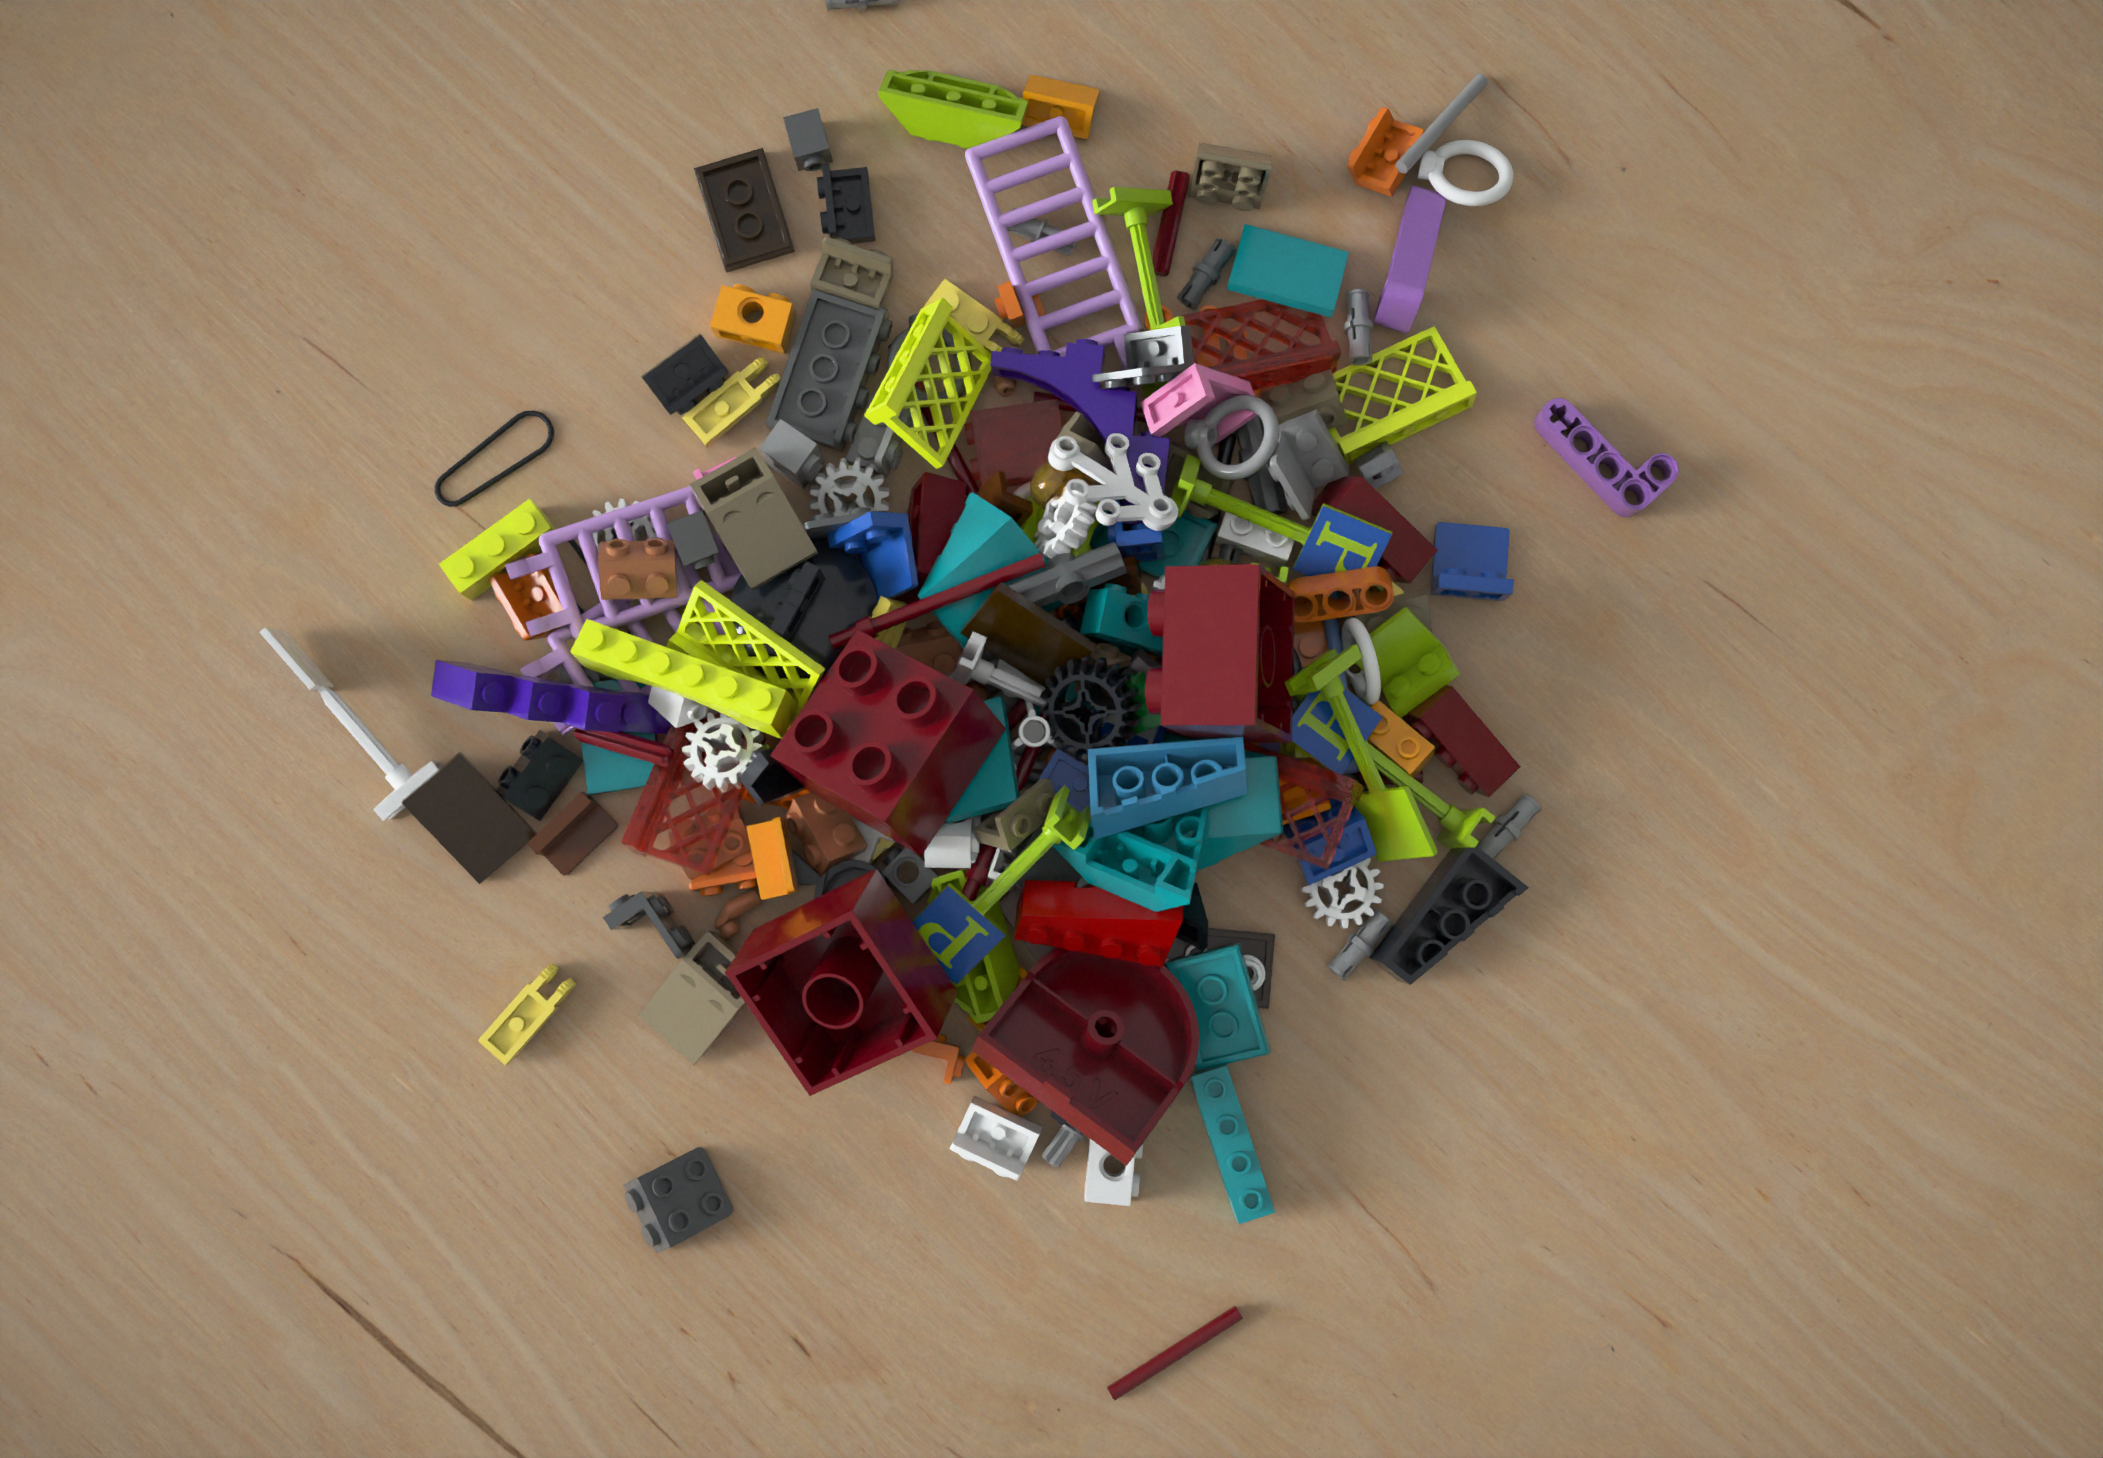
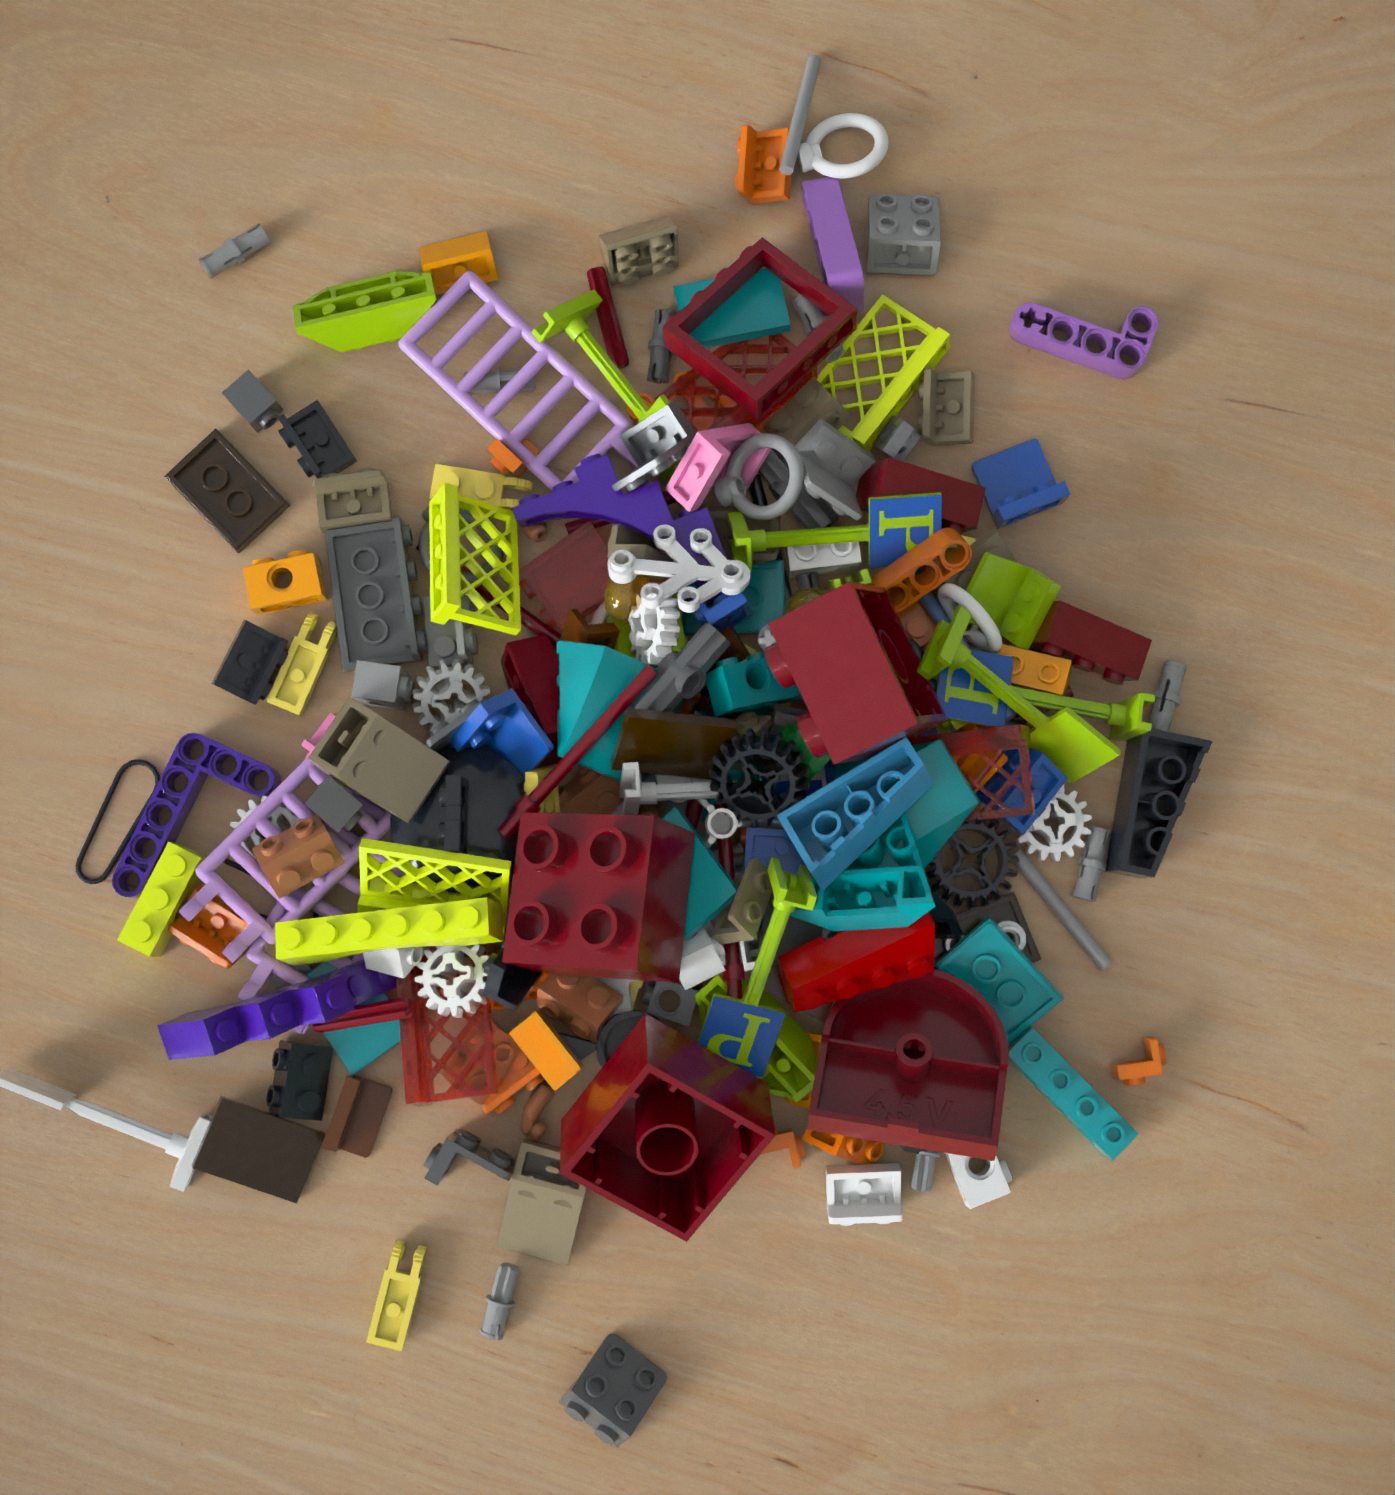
camera: 25 degrees left, 0 degrees up
(560, 471) = (182, 802): none -> dark purple beam
(616, 1066) = (500, 1301): none -> light grey axle
(1174, 1353) = (1112, 1299): dark red bar -> none
(1254, 916) = (980, 874): none -> black gear
(1302, 1155) = (1135, 1071): none -> orange bracket
(1310, 972) = (1062, 911): none -> light grey bar
(1315, 349) = (796, 365): none -> dark red window
(1440, 459) = (947, 407): none -> dark tan bracket
(1481, 280) = (903, 234): none -> light grey bracket

